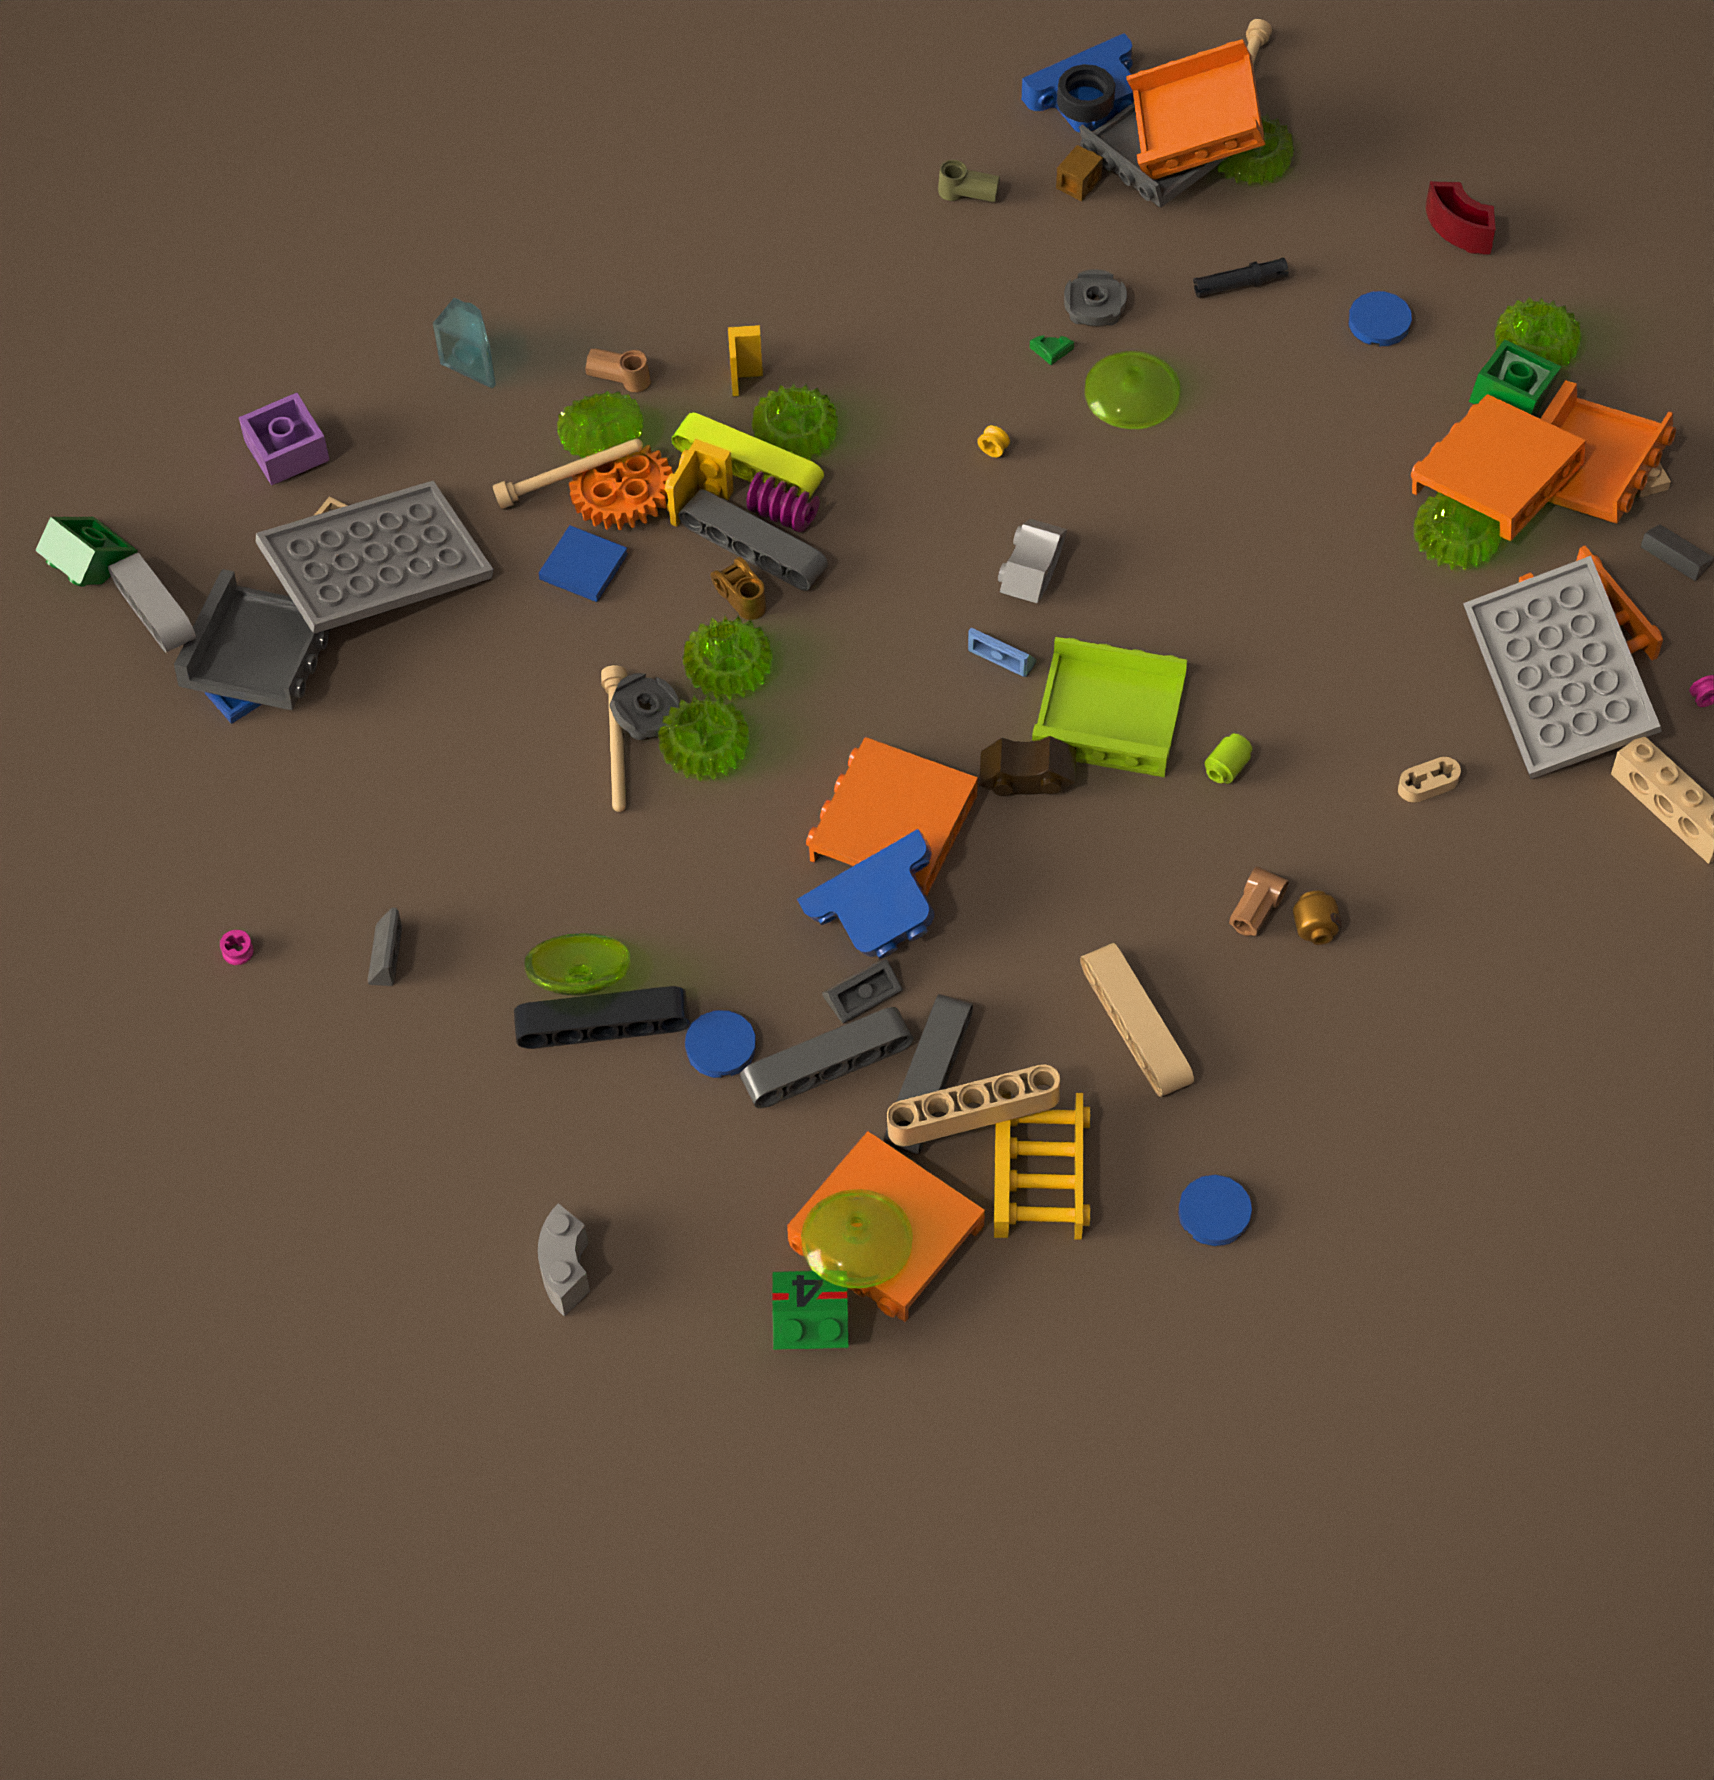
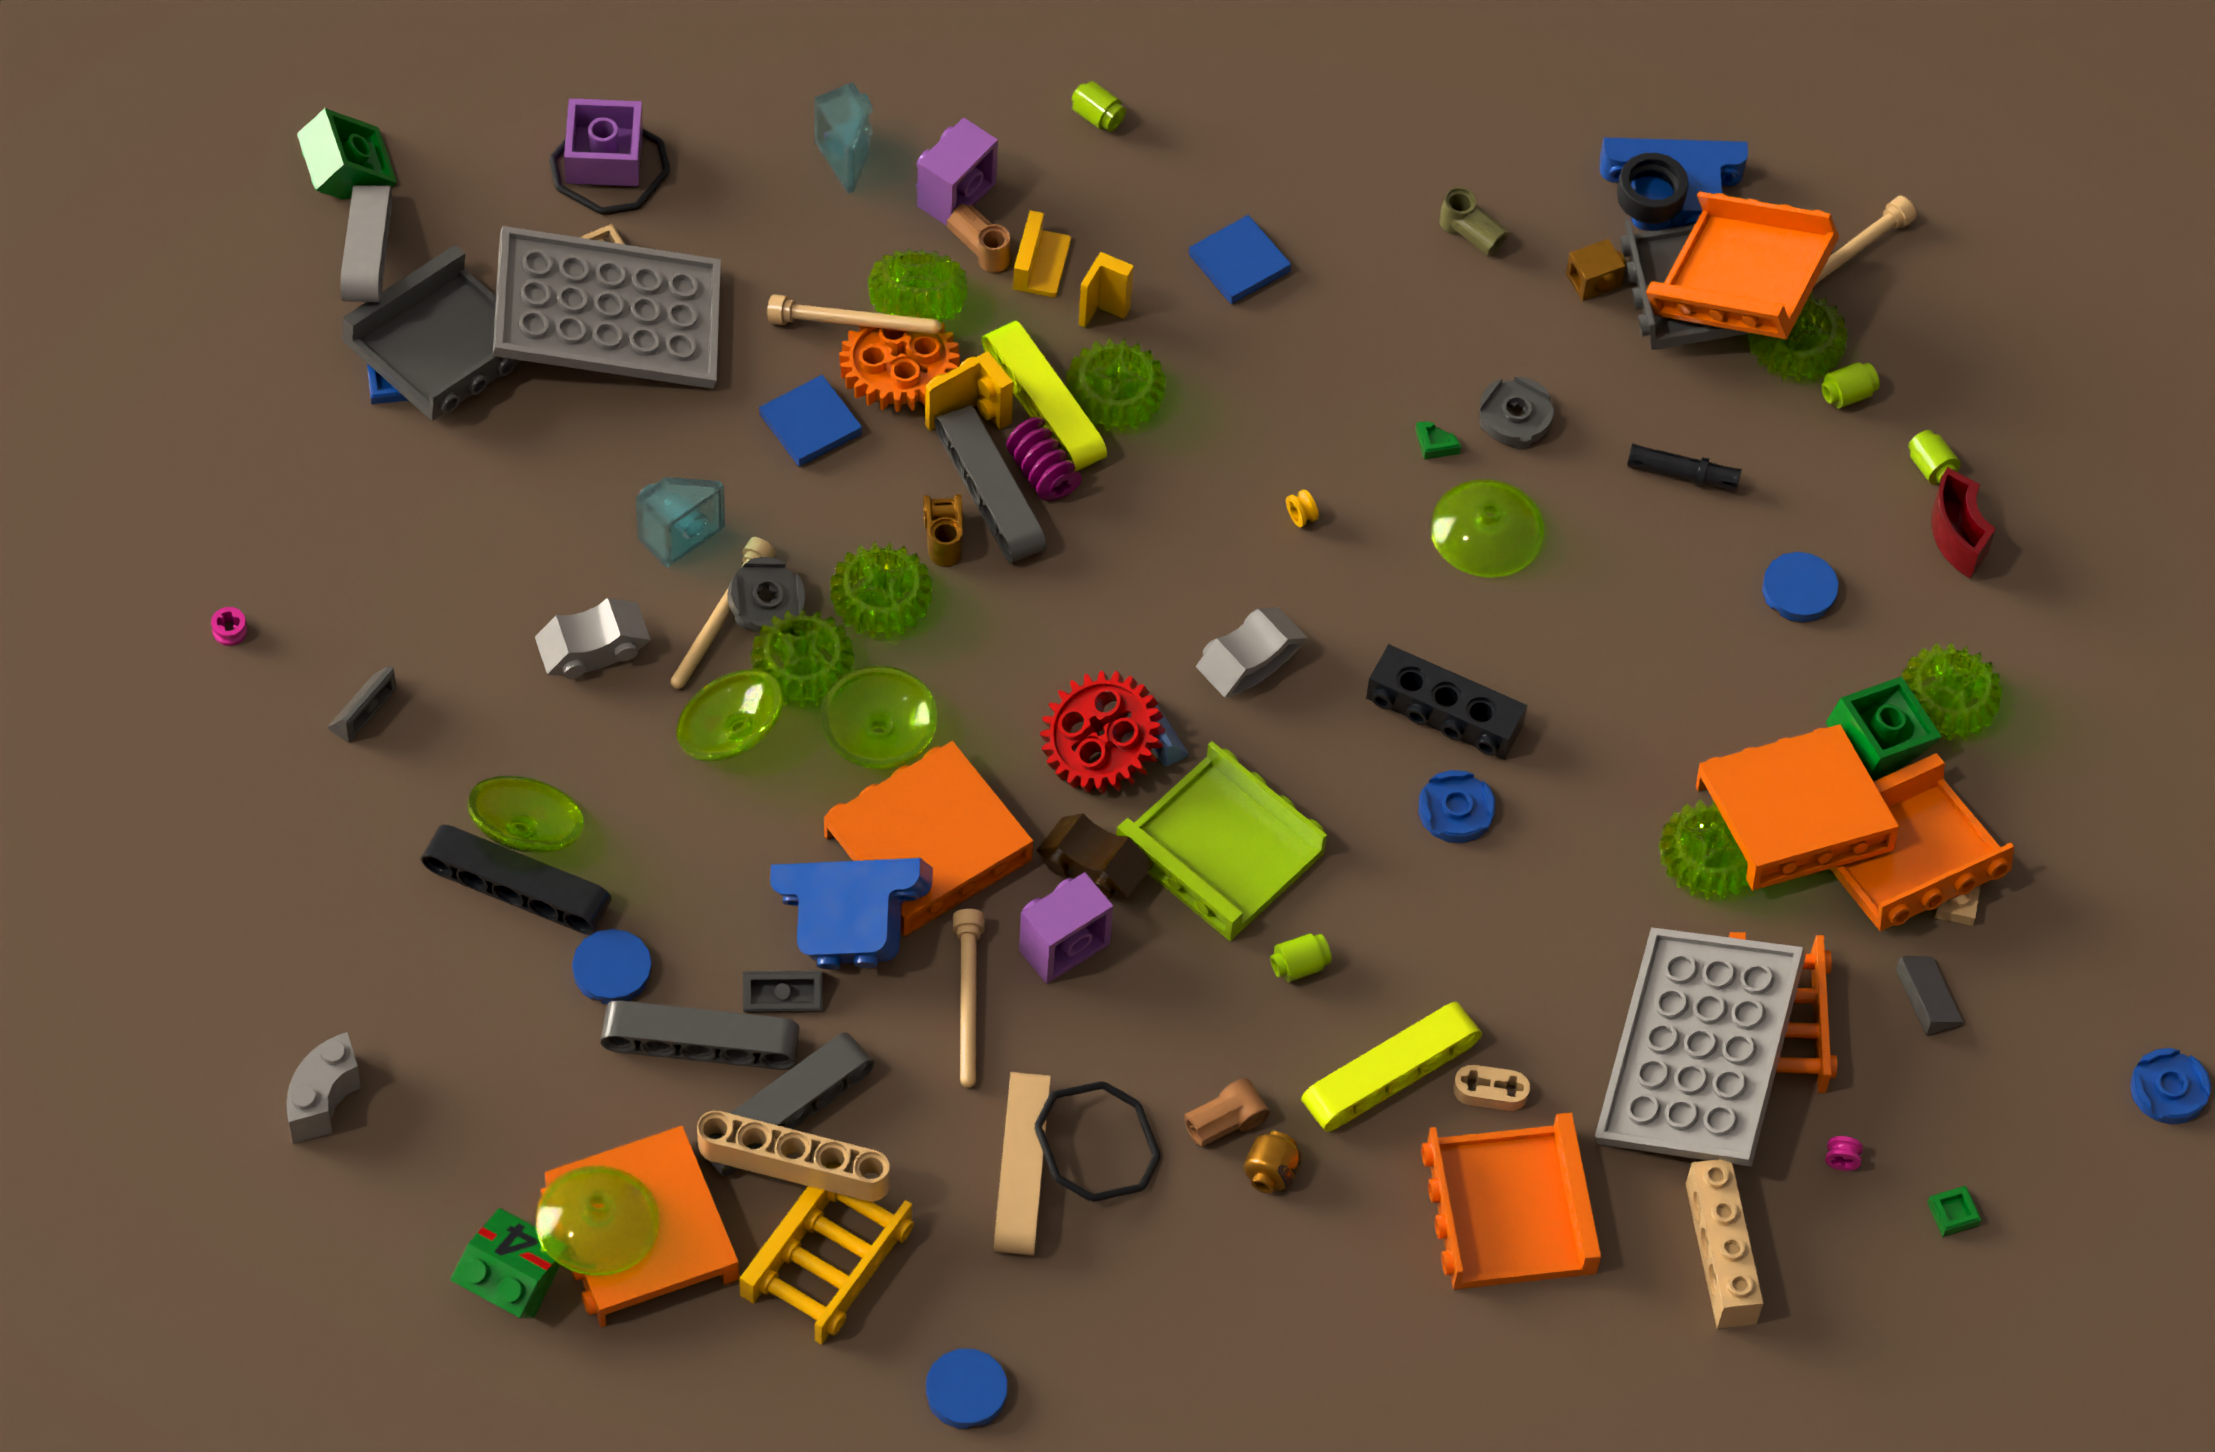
camera: 25 degrees right, 0 degrees up
(302, 492) = (616, 208): none -> black piece
(533, 806) = (592, 638): none -> light grey brick
(538, 680) = (679, 516): none -> clear light blue slope
(570, 327) = (956, 170): none -> medium lavender brick
(638, 234) = (1098, 106): none -> lime brick
(672, 362) = (1040, 258): none -> yellow panel
(683, 806) = (730, 715): none -> clear neon green dish
(792, 735) = (879, 699): none -> clear neon green dish
(818, 291) = (1239, 259): none -> blue tile
(942, 661) = (1087, 706): none -> red gear
(969, 867) = (968, 926): none -> tan piece
(1047, 827) = (1065, 927): none -> medium lavender brick
(1180, 1014) = (1051, 1161): none -> black piece
(1197, 523) = (1438, 685): none -> black brick
(1256, 594) = (1456, 806): none -> blue tile
(1313, 163) = (1850, 384): none -> lime brick
(1349, 802) = (1391, 1066): none -> neon yellow beam
(1406, 184) = (1932, 455): none -> lime brick
(1508, 853) = (1512, 1205): none -> orange panel

